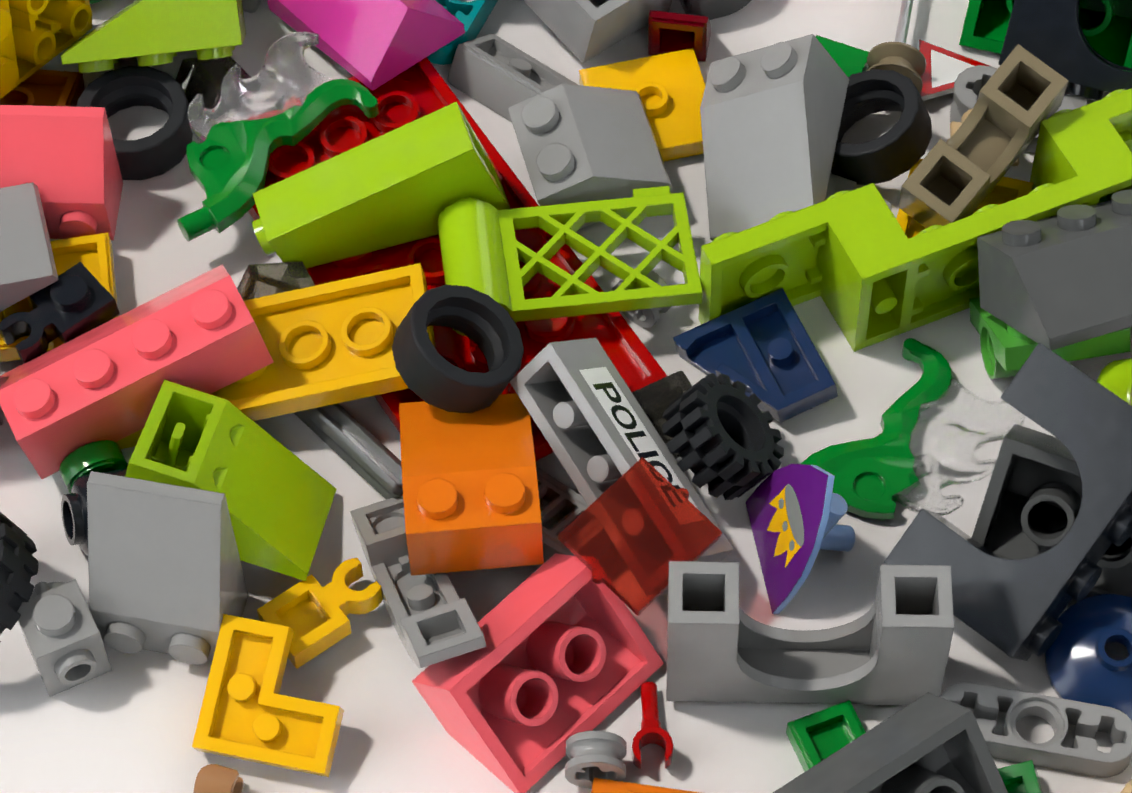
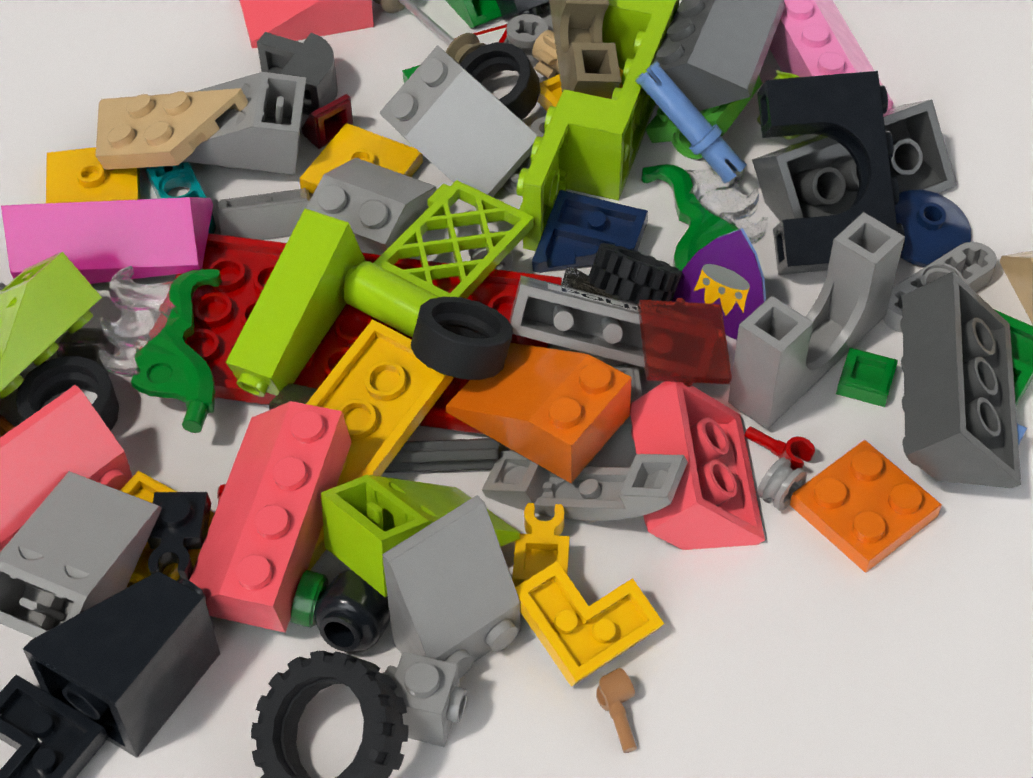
camera: 50 degrees left, 5 degrees down
(974, 328) = (691, 123): none -> medium blue pin

